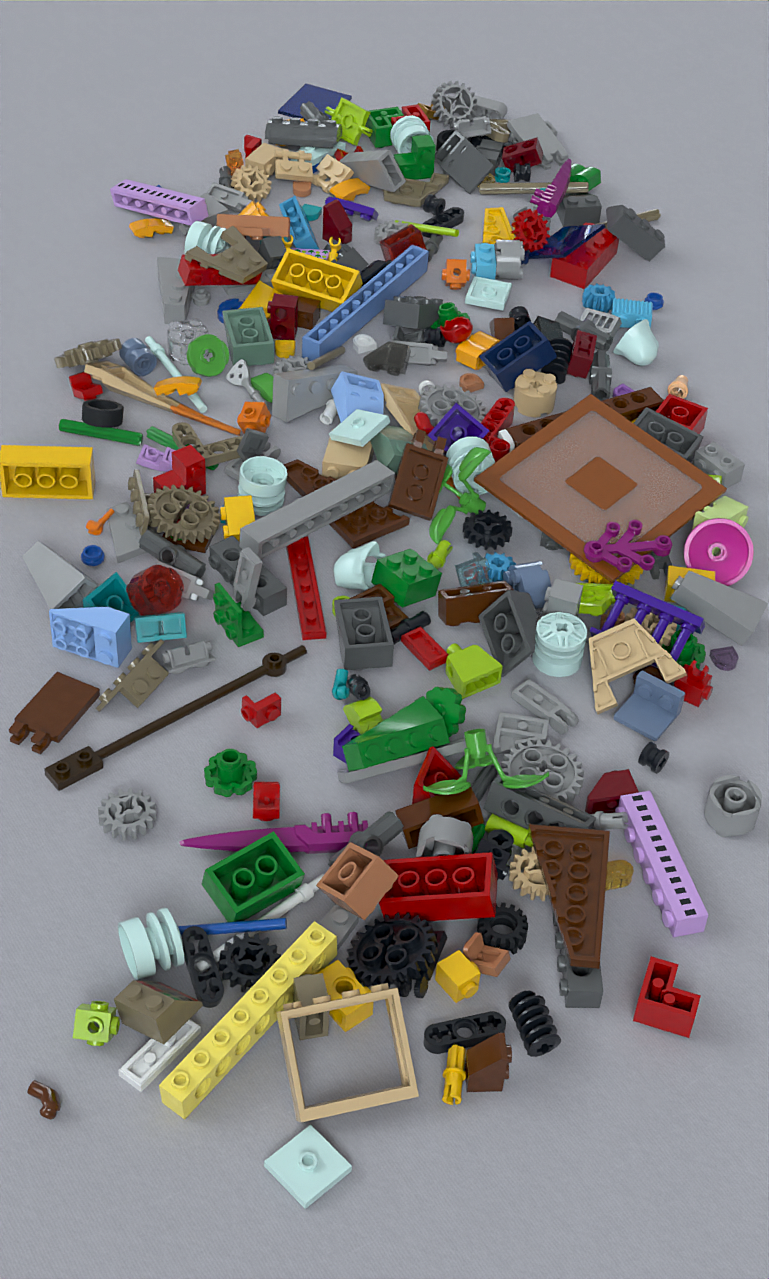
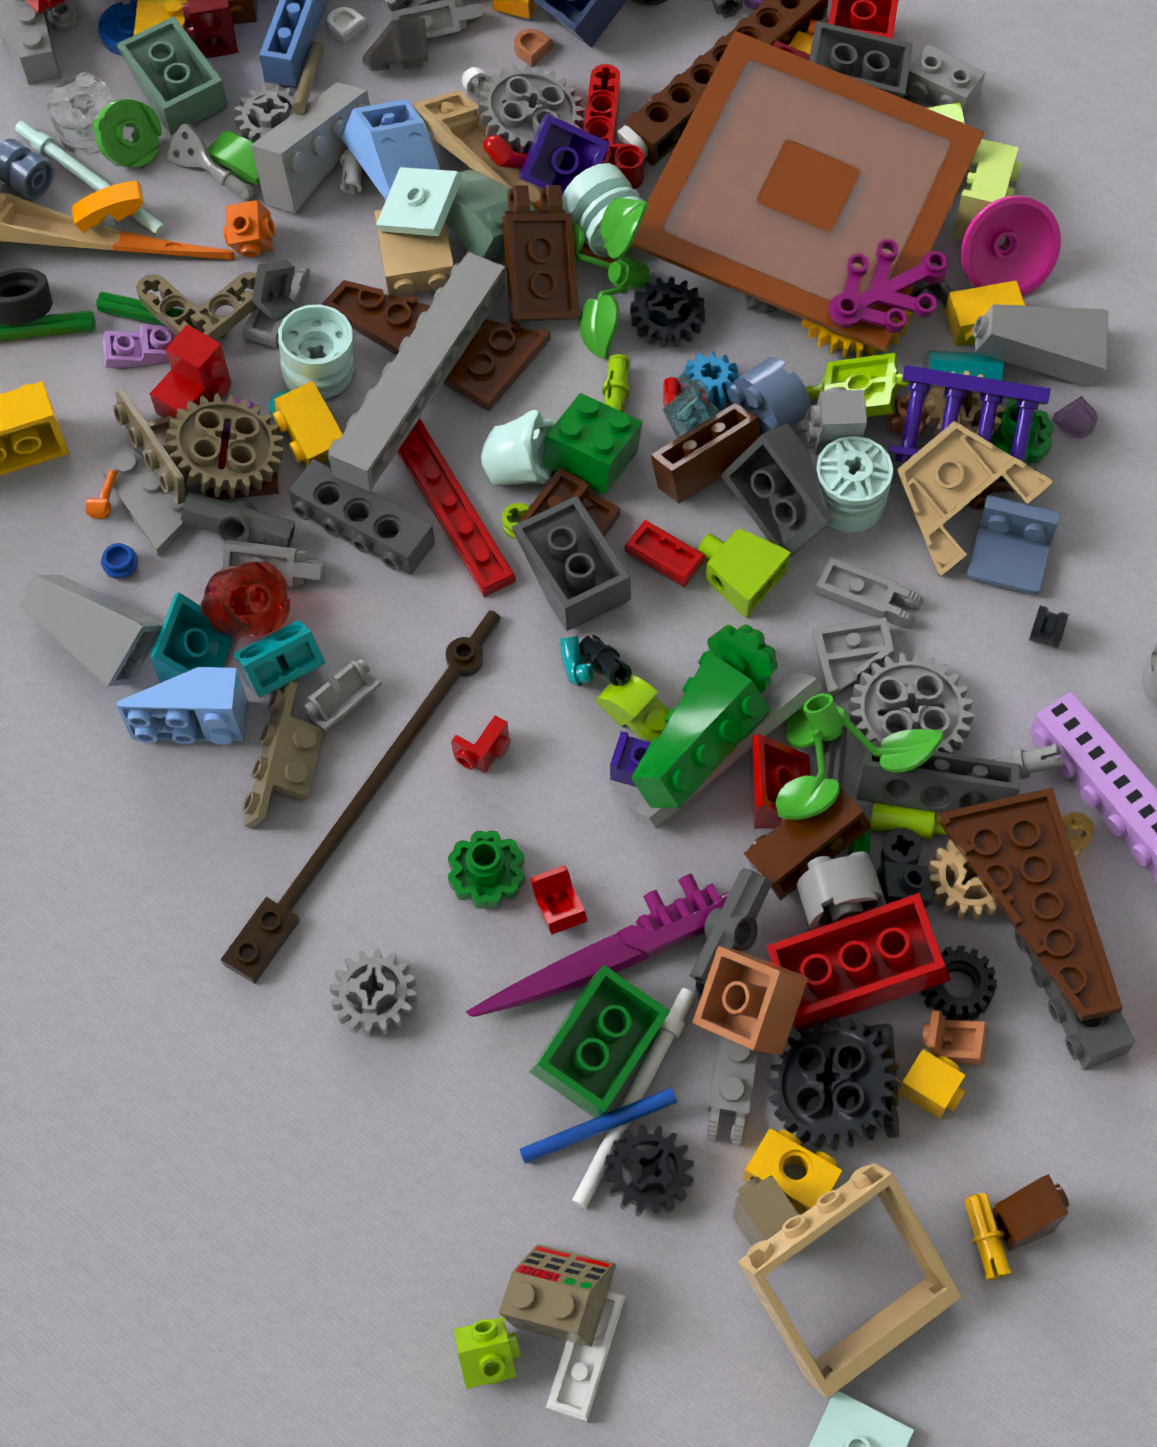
camera: 15 degrees left, 20 degrees up
(53, 711) = (187, 854): reddish brown tile -> none
(145, 945) = (508, 1201): light aqua wheel -> none
(198, 979) = (617, 1220): black beam -> none
(237, 623) = (379, 601): green bracket -> none
(245, 1022) = (691, 1268): light yellow brick -> none
(247, 578) = (378, 539): light grey hinge -> none
(285, 348) = (232, 72): yellow tile -> none
(406, 625) = (628, 521): black pin -> none
(471, 1022) = (989, 1138): black beam -> none
(534, 1023) = (1062, 1121): black piece -> none
(535, 393) = (637, 38): tan brick -> none
(607, 791) = (1015, 706): dark red slope -> none
(695, 684) = (1065, 485): red brick -> none

